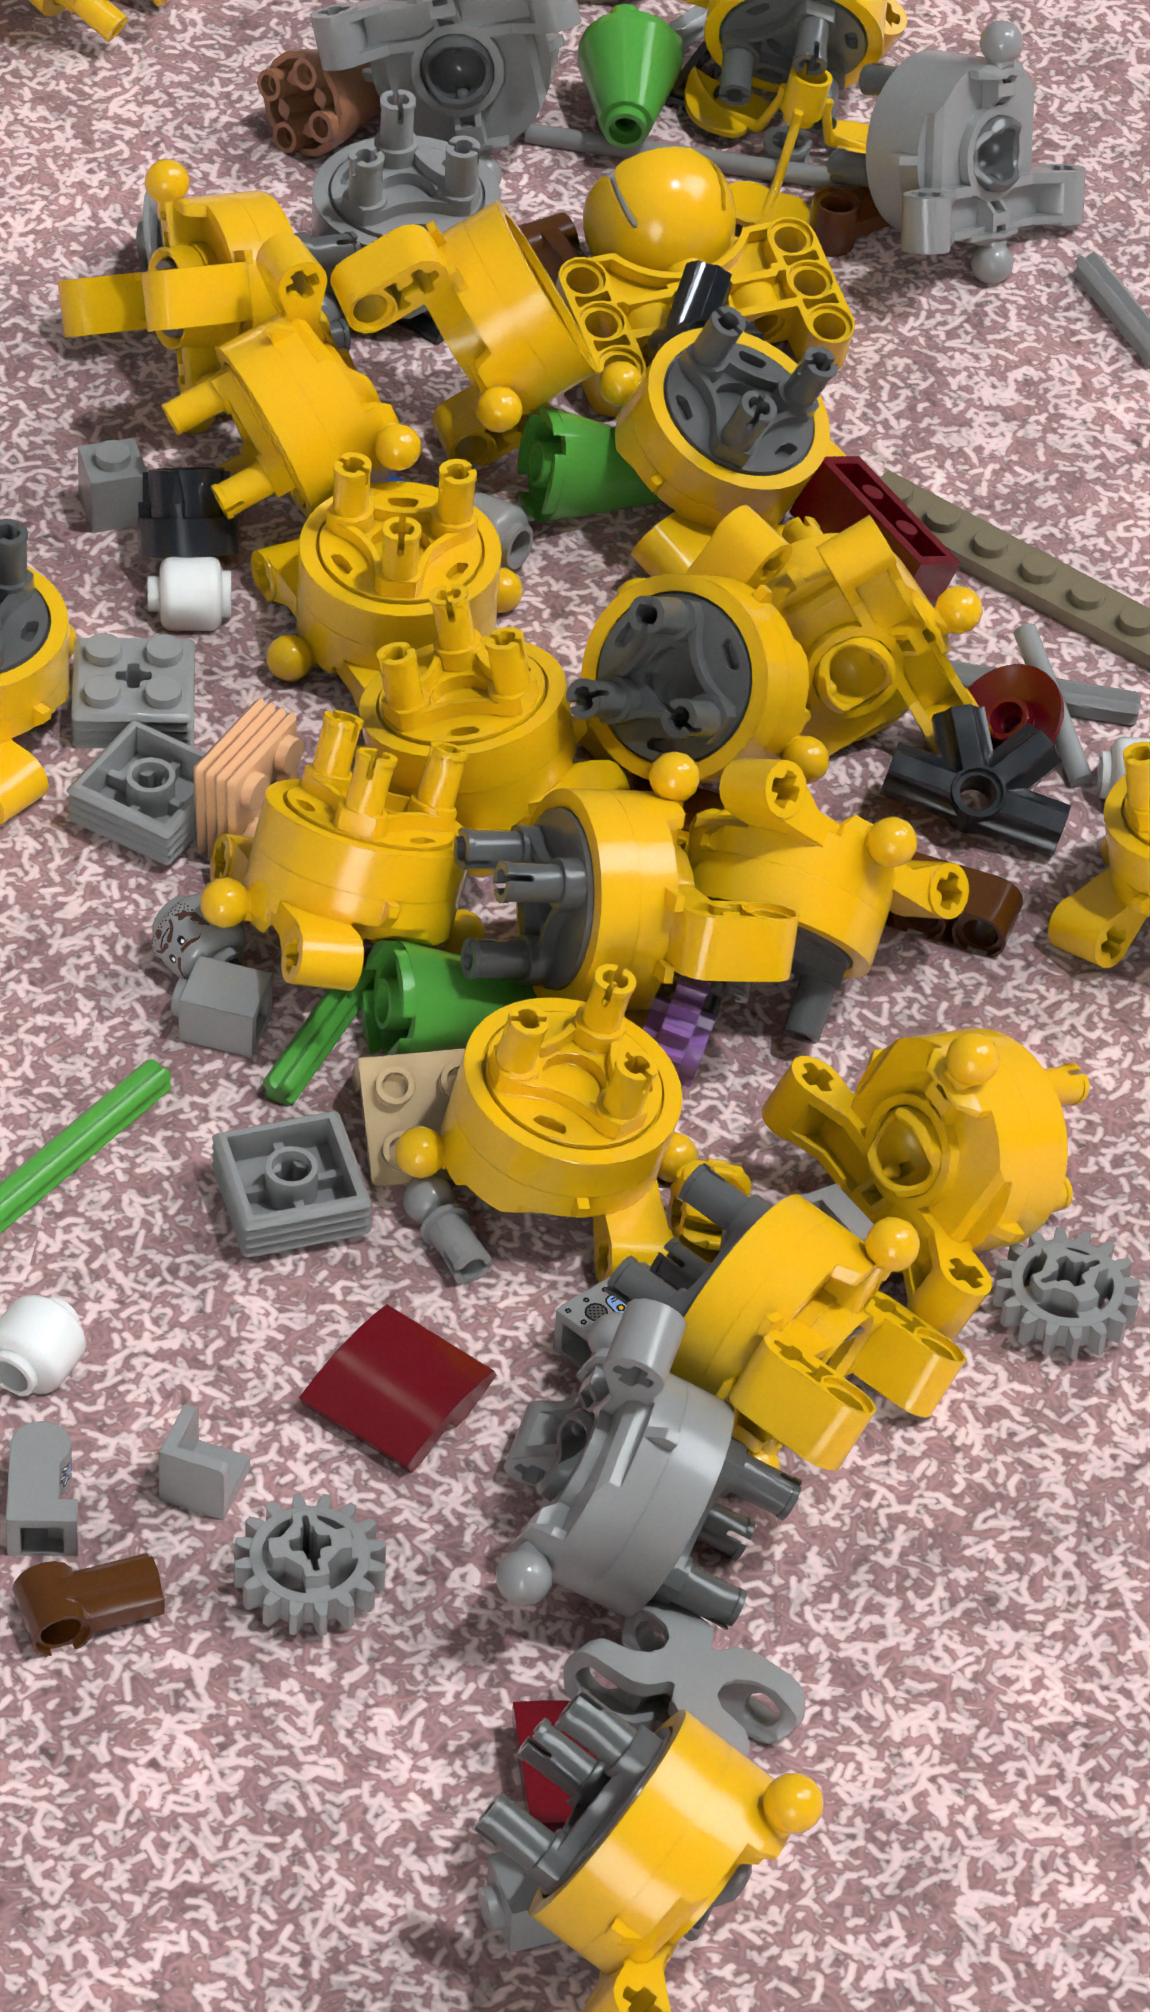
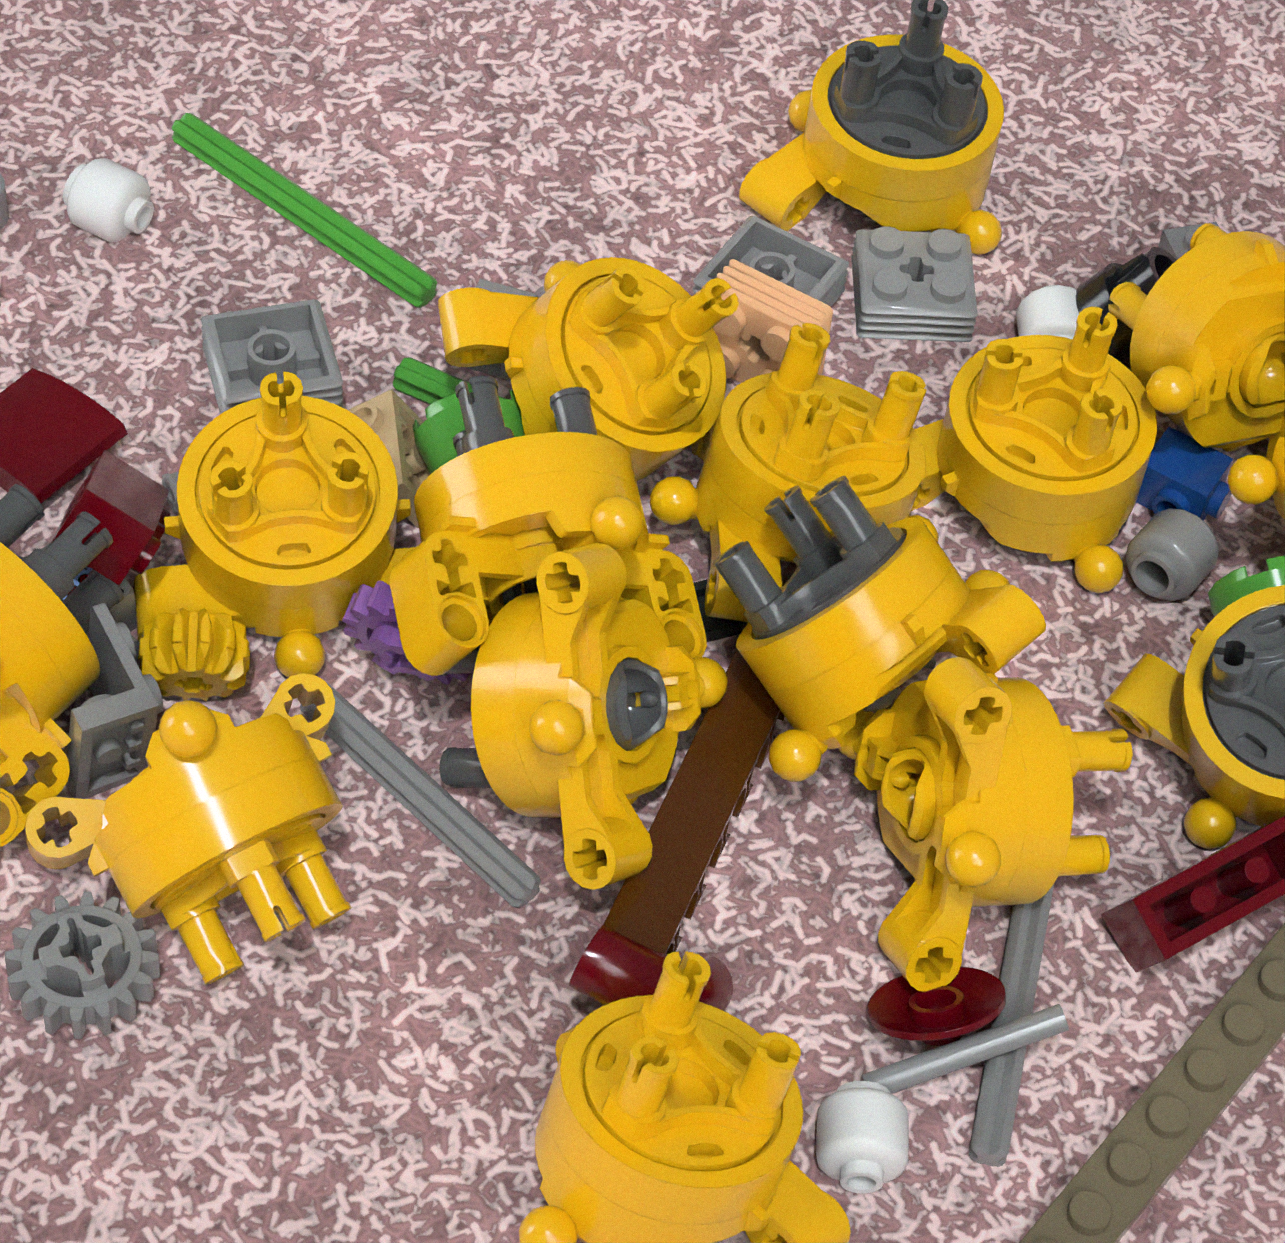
camera: 90 degrees right, 5 degrees up
(572, 1257) = (129, 509): none -> dark red brick
(842, 1053) = (430, 803): none -> light grey axle
(1001, 774) = (816, 949): black piece -> none
(1046, 876) = (622, 968): none -> dark red cylinder

